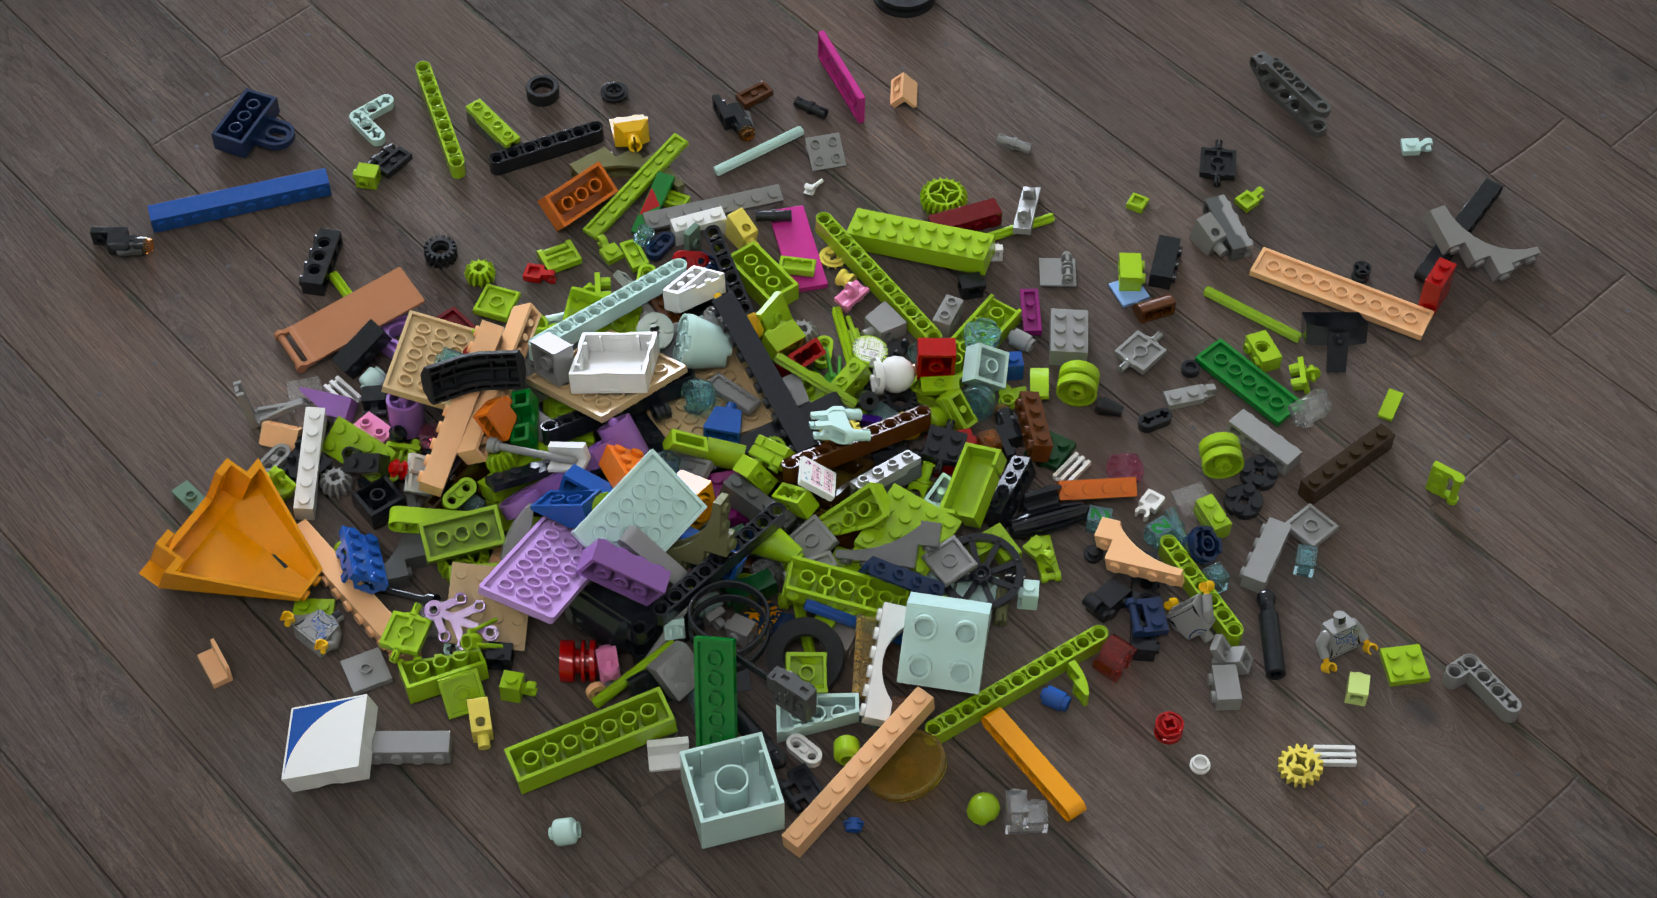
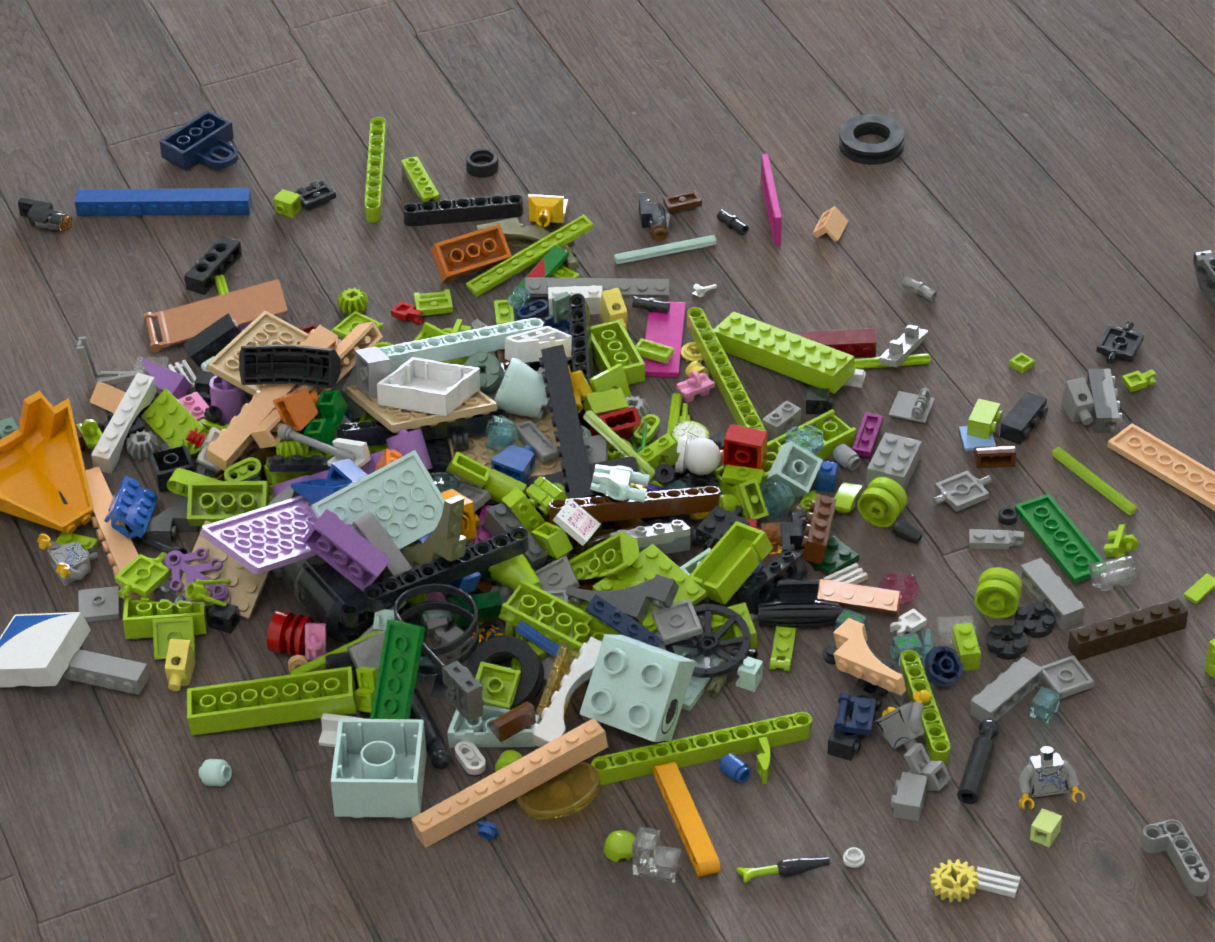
camera: 20 degrees right, 10 degrees down
(273, 457) = (97, 413): light grey plate -> none
(365, 463) = (169, 430): black hinge -> none
(382, 105) = (309, 155): light aqua beam -> none
(440, 244) = (325, 277): black tyre -> none
(513, 687) = (224, 644): lime brick -> none
(608, 89) = (543, 175): black gear -> none
(609, 252) = (482, 307): lime plate -> none
(683, 705) = (367, 683): none -> lime slope
(692, 257) = (553, 321): red plate -> none
(804, 783) = (454, 779): black plate -> none
(825, 151) = (728, 261): light grey hinge -> none
(838, 706) = (513, 721): none -> reddish brown brick
(884, 323) = (716, 415): light grey torso -> none
(923, 482) = (694, 551): lime bracket -> none
(942, 195) = (826, 317): lime gear -> none
(1039, 549) = (777, 636): lime plate -> none
(1107, 599) = (823, 695): black hinge -> none
(1114, 657) = (807, 743): clear red brick -> none
(1142, 792) = (784, 868): none -> black piece
(1156, 422) = (949, 553): black beam -> none
(1169, 727) = (836, 819): red wheel -> none
(1218, 575) = (945, 699): clear light blue brick -> none
(1262, 351) = (1087, 514): lime brick -> none
(1336, 332) = (1166, 510): black piece -> none
(1404, 665) = (1107, 819): lime plate -> none

